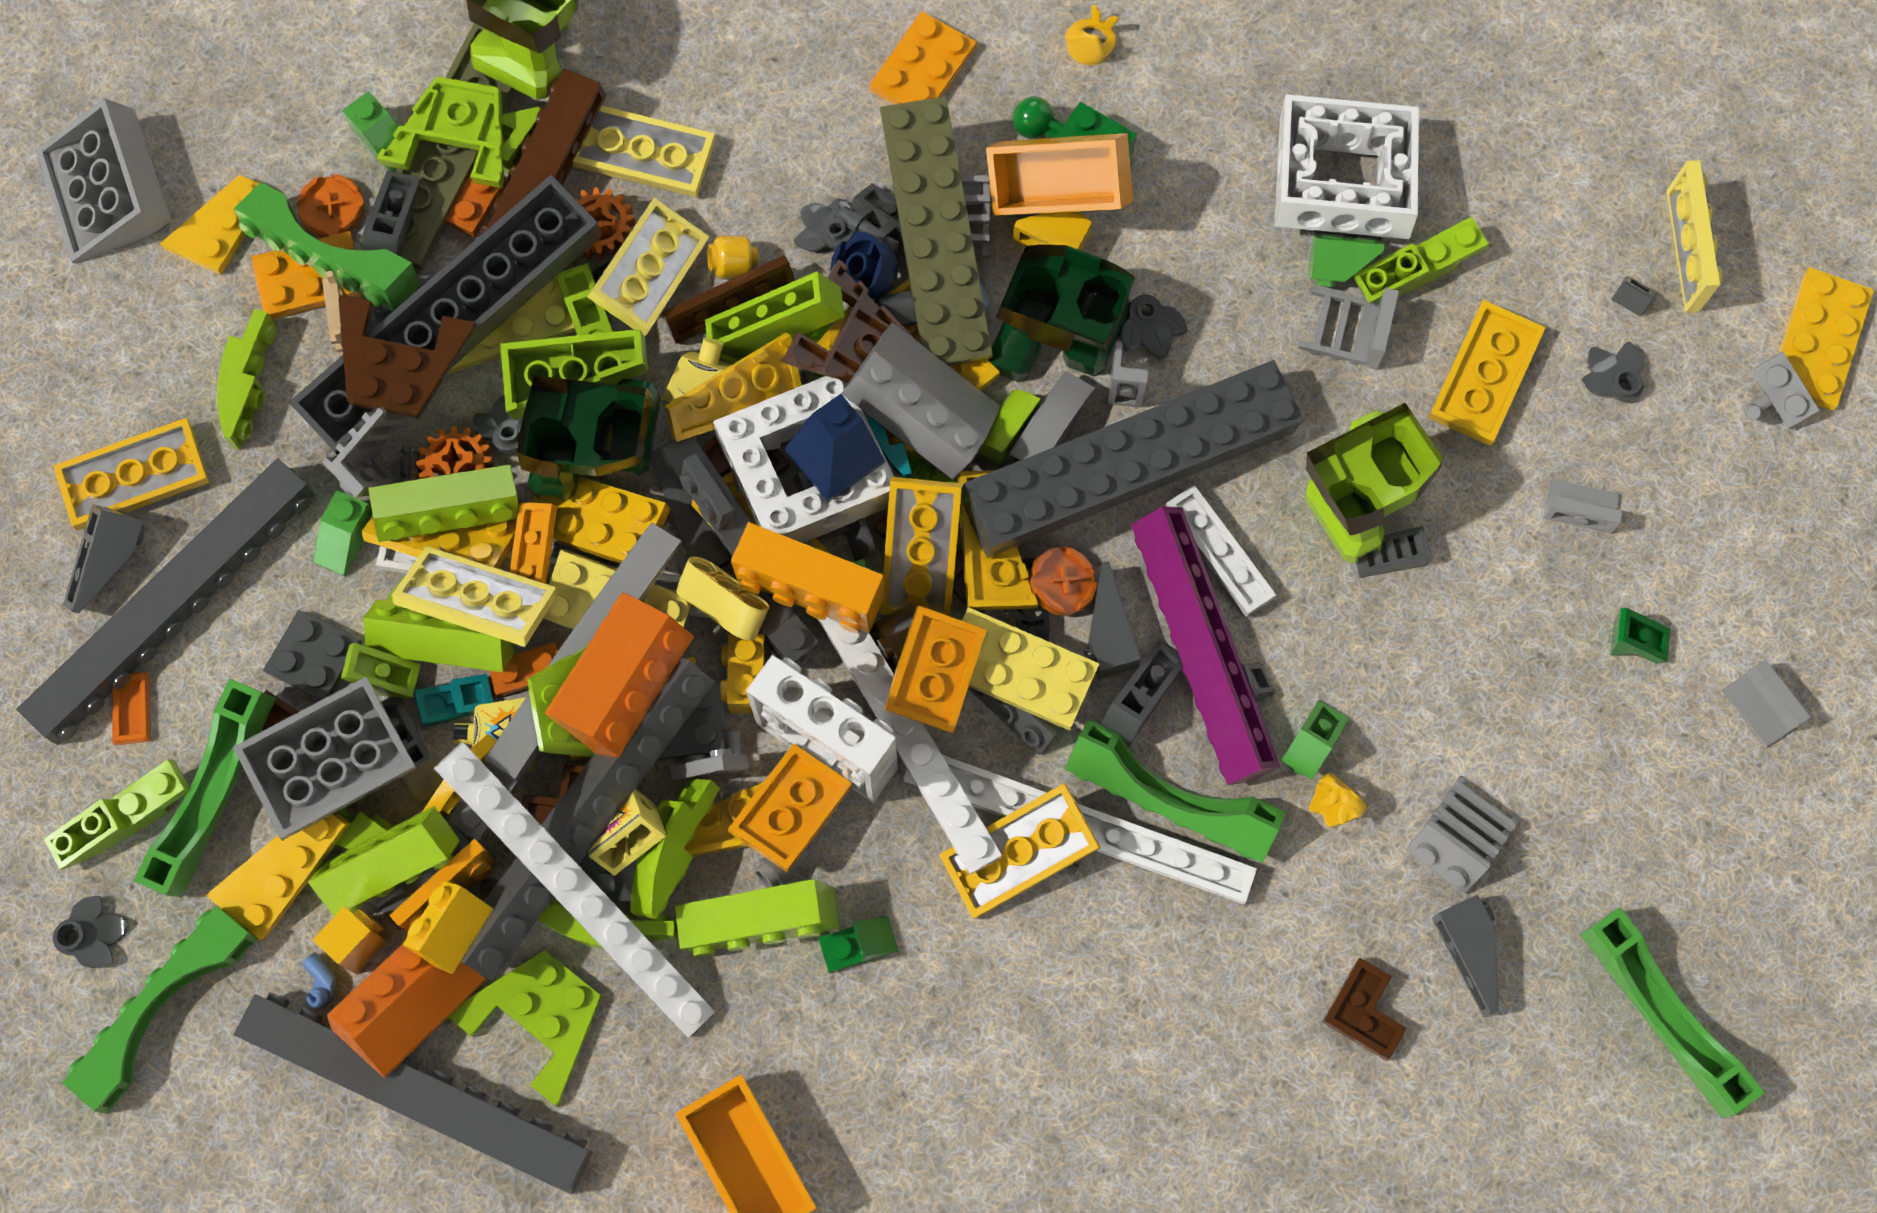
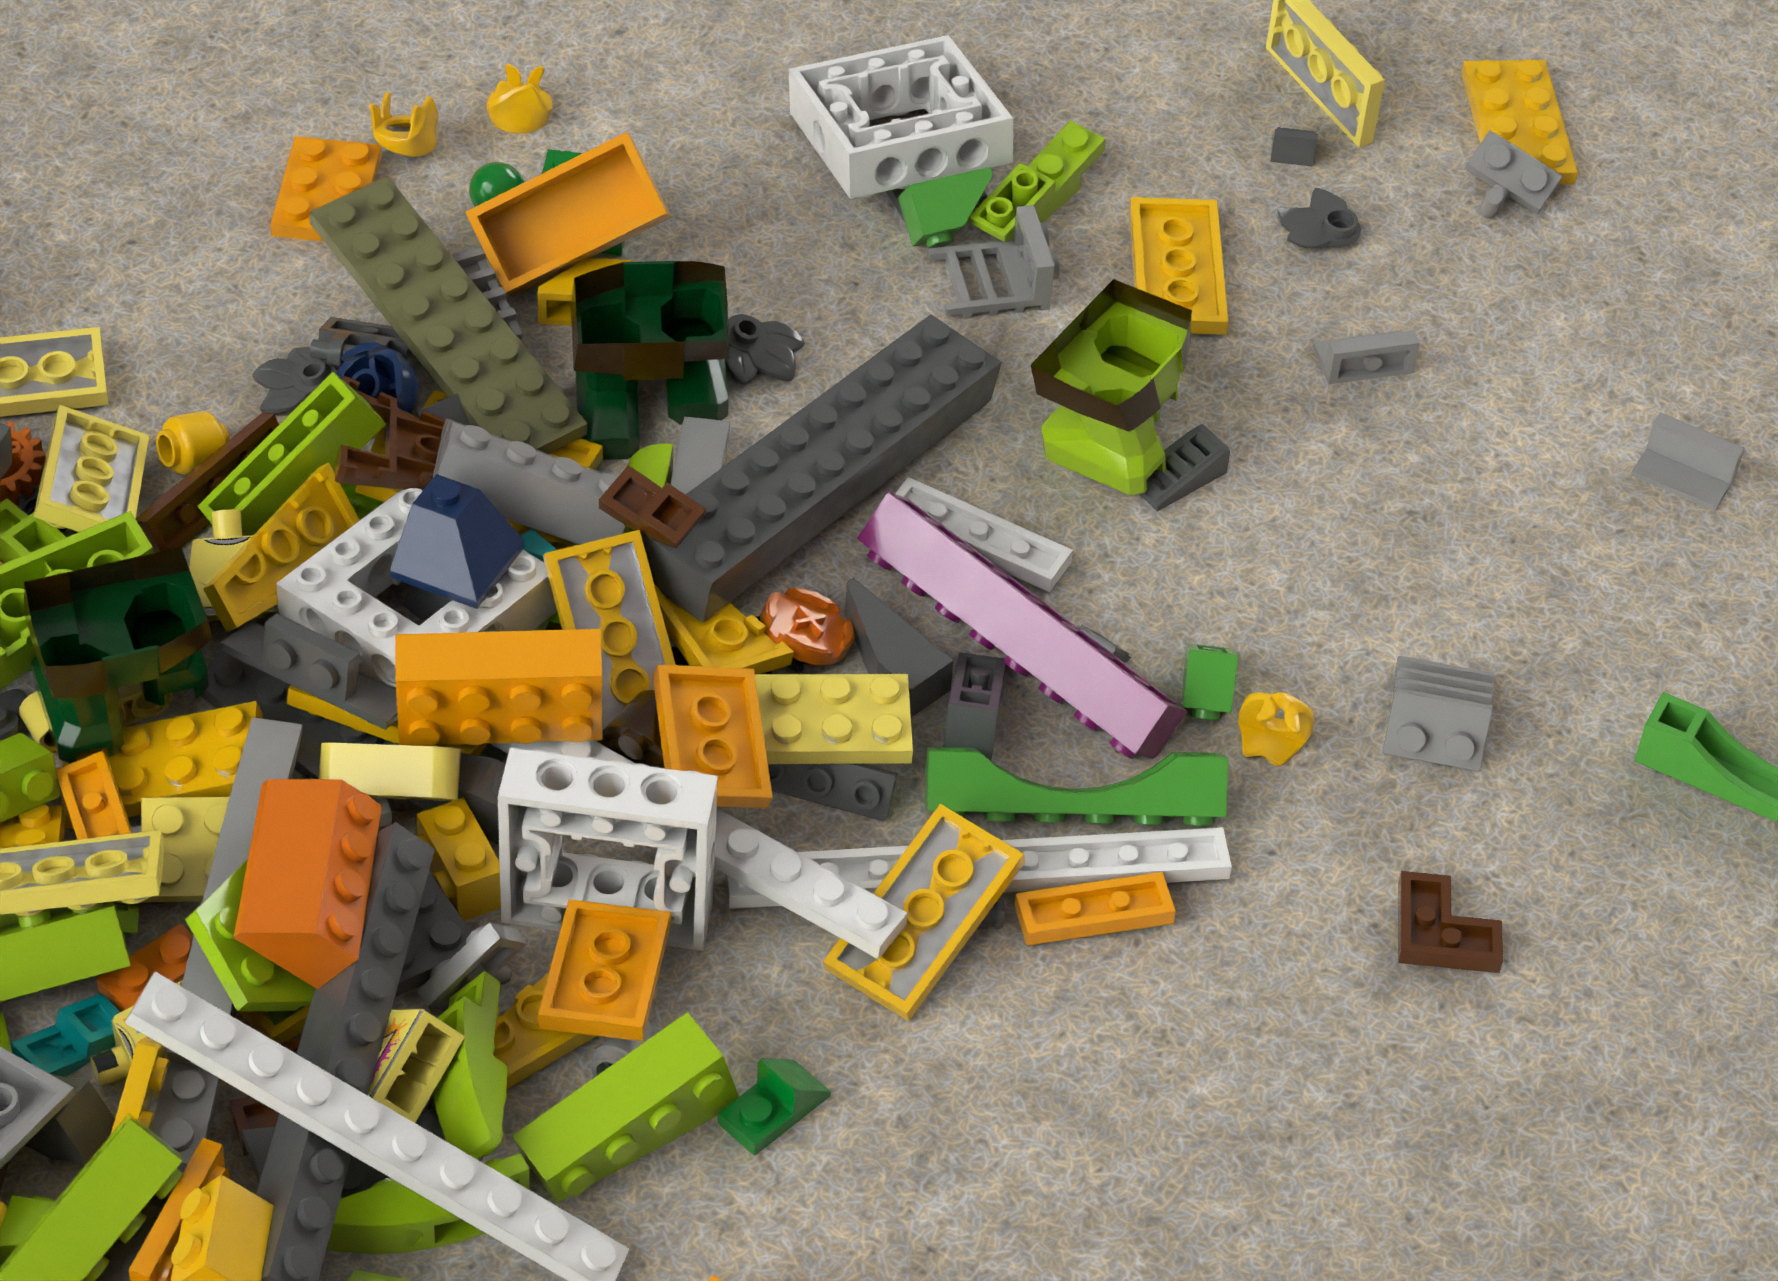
camera: 30 degrees left, 25 degrees down
(977, 474) = (656, 511): none -> reddish brown slope
(1008, 40) = (422, 124): none -> yellow piece
(1126, 384) = (763, 394): light grey panel -> none
(1139, 890) = (1094, 908): none -> light orange plate
(1472, 944) = (1524, 813): dark grey slope -> none
(1639, 636) = (1504, 443): green slope -> none

